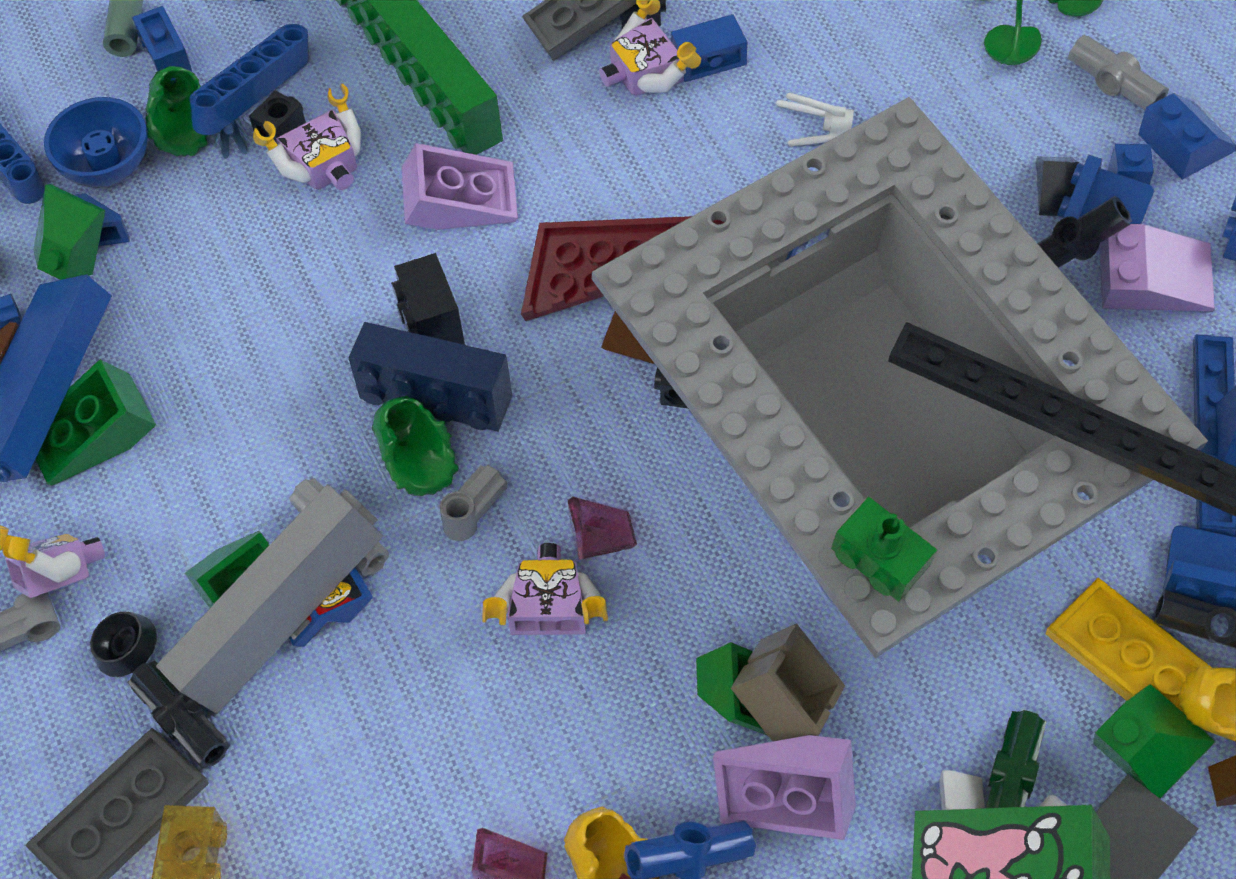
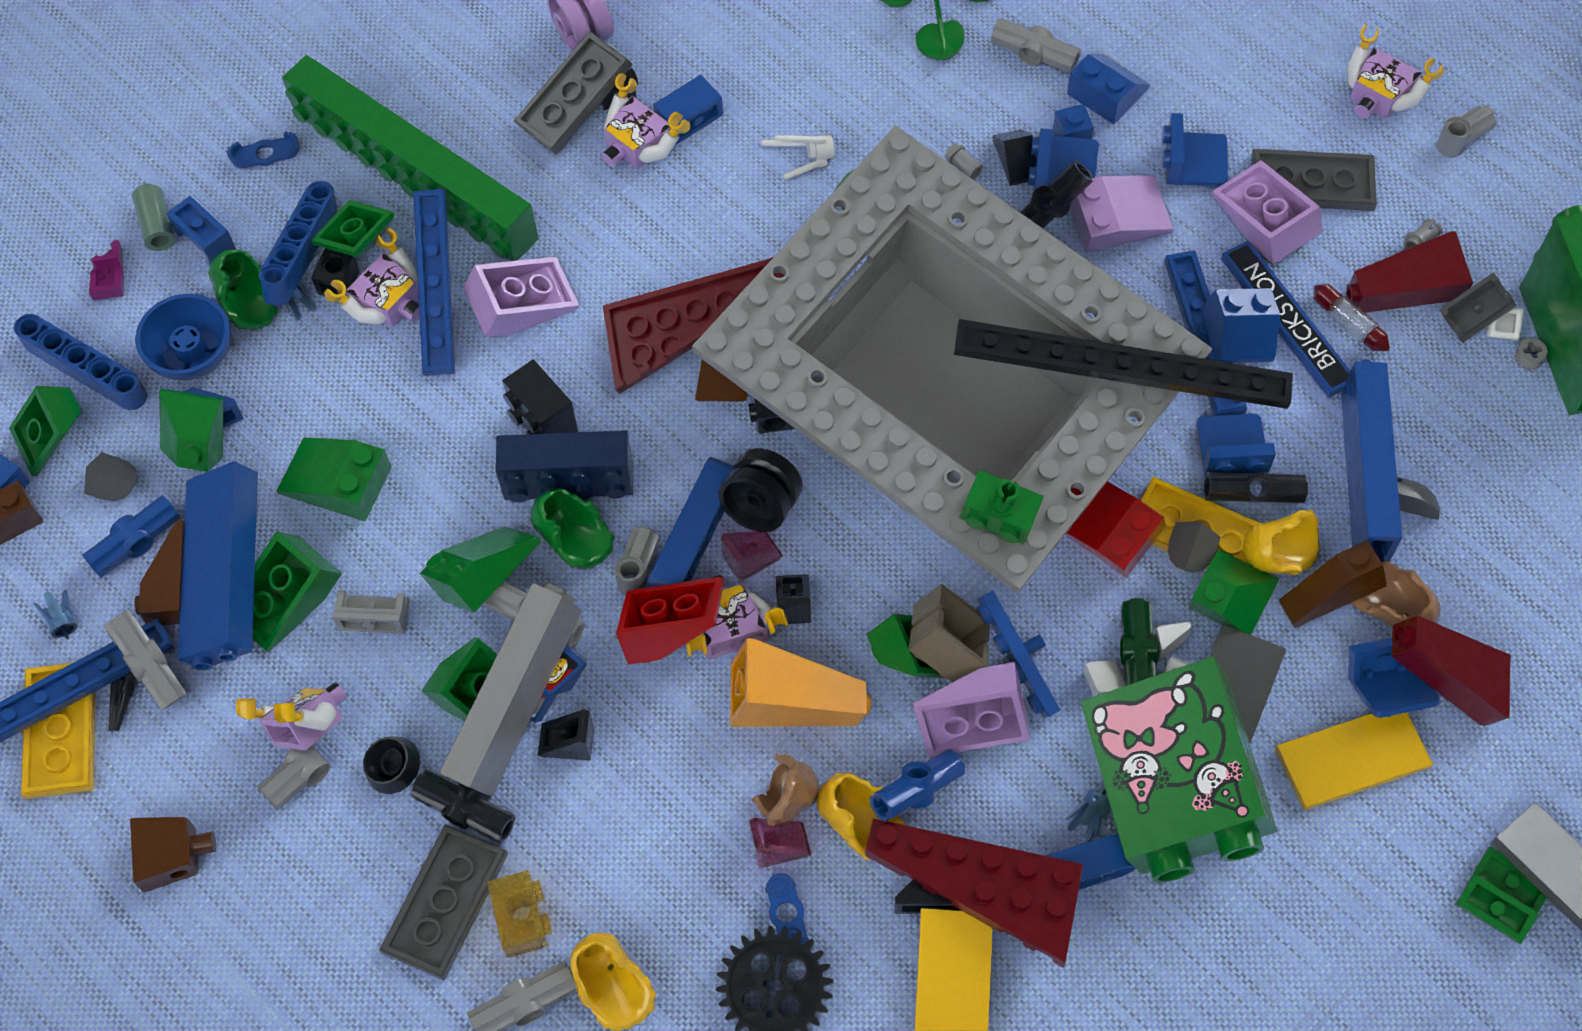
camera: 20 degrees left, 5 degrees up
(58, 66) = (108, 274): none -> magenta slope
(169, 476) = (371, 613): none -> light grey hinge
(196, 324) = (336, 475): none -> green slope
(293, 457) = (477, 567): none -> green slope
(309, 79) = (354, 229): none -> green slope
(323, 673) = (567, 737): none -> black slope
(370, 152) = (434, 282): none -> blue tile
(471, 570) = (667, 617): none -> red slope
(541, 814) = (789, 792): none -> medium nougat piece
(546, 487) = (693, 528): none -> blue beam
(589, 698) = (788, 690): none -> light orange slope
(629, 594) = (794, 597): none -> black slope
(632, 462) = (760, 490): none -> black wheel
(864, 752) = (1009, 642): none -> blue plate
(989, 168) = (963, 161): none -> light grey pin
(1030, 620) = (1117, 528): none -> red slope
(1057, 771) = (1171, 637): none -> white slope
(1118, 670) = (1192, 546): none -> dark grey brick

